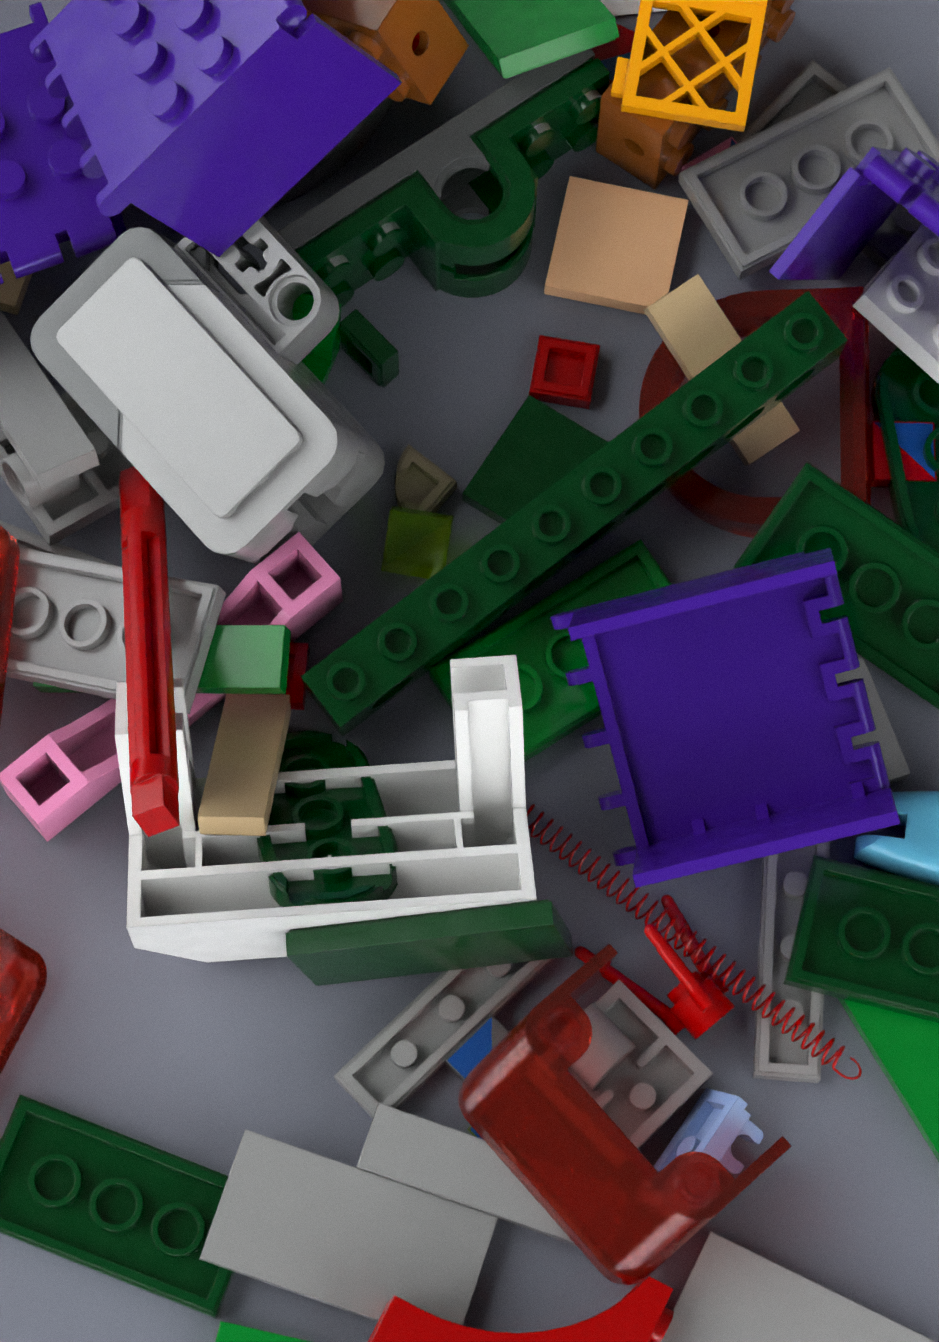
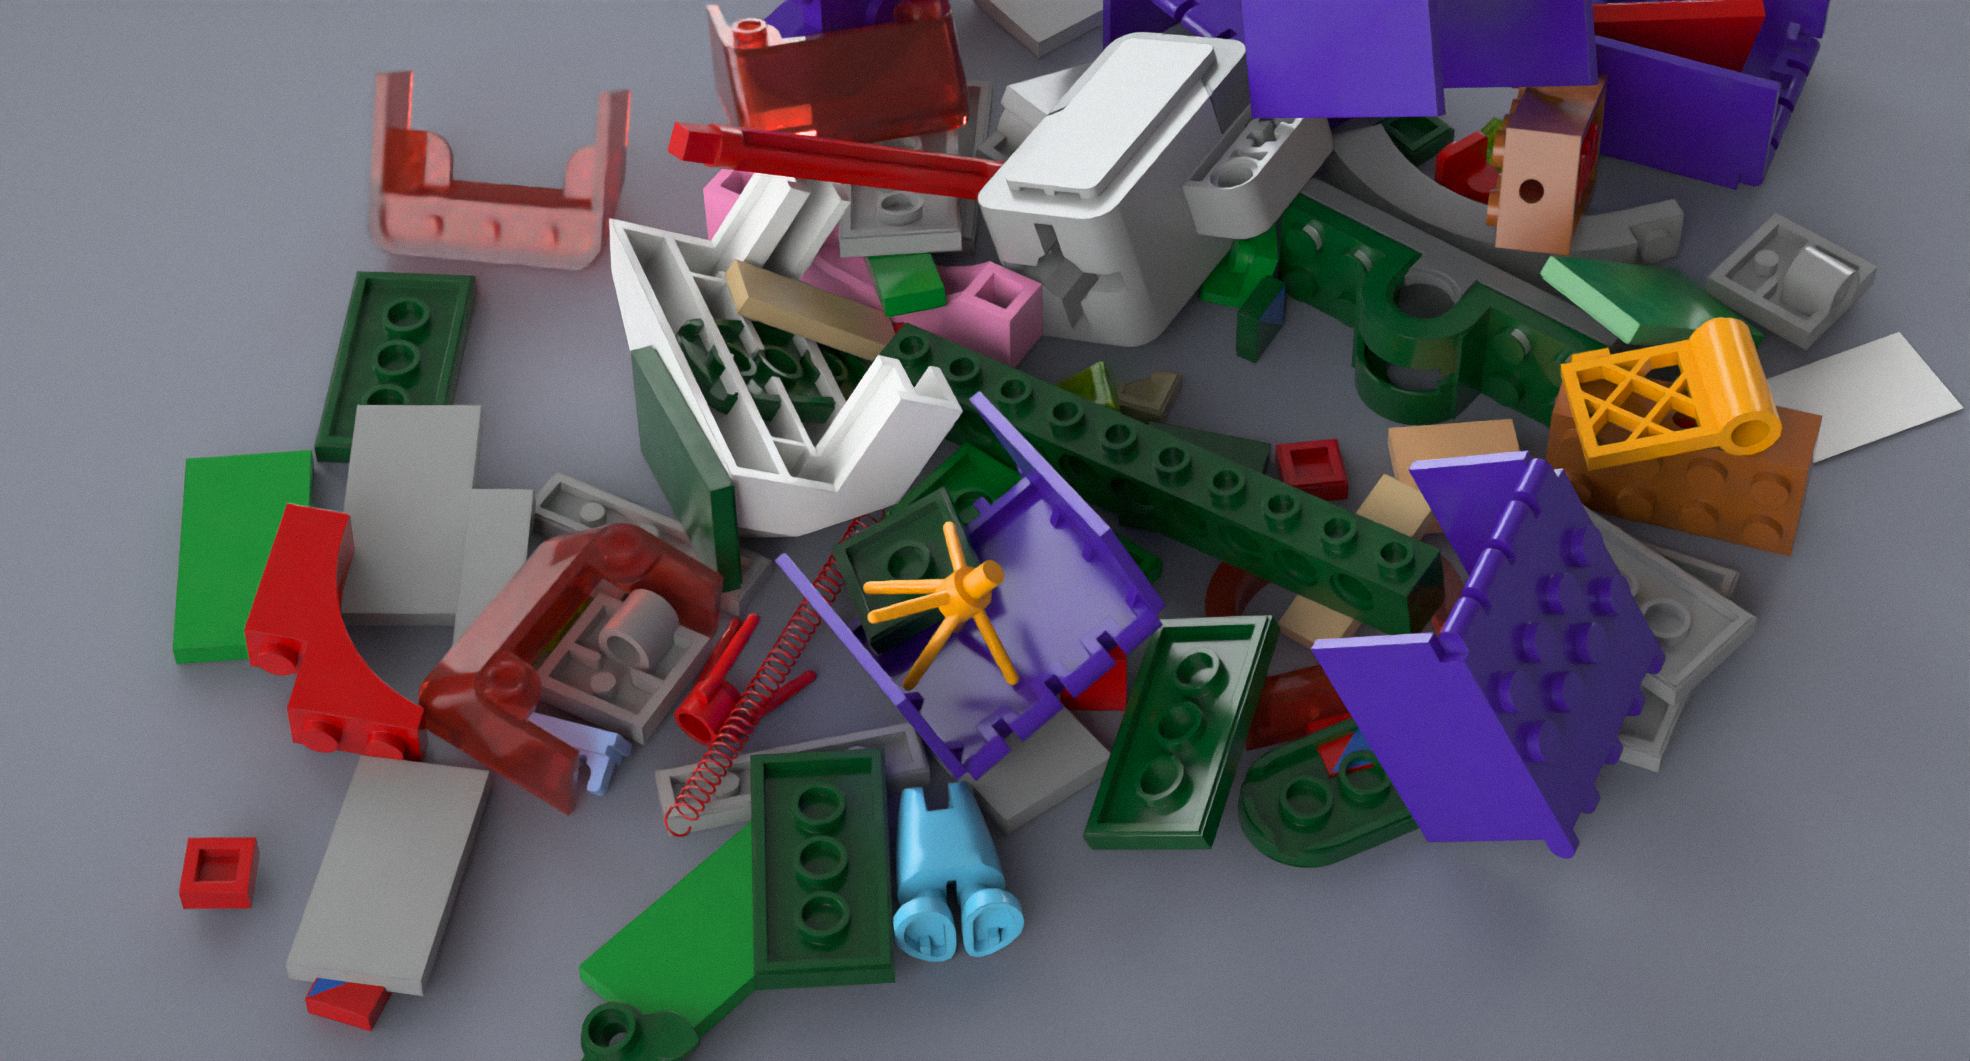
camera: 75 degrees right, 25 degrees down
(625, 766) = (901, 548): none -> dark green tile
(756, 728) = (958, 597): none -> light orange plant

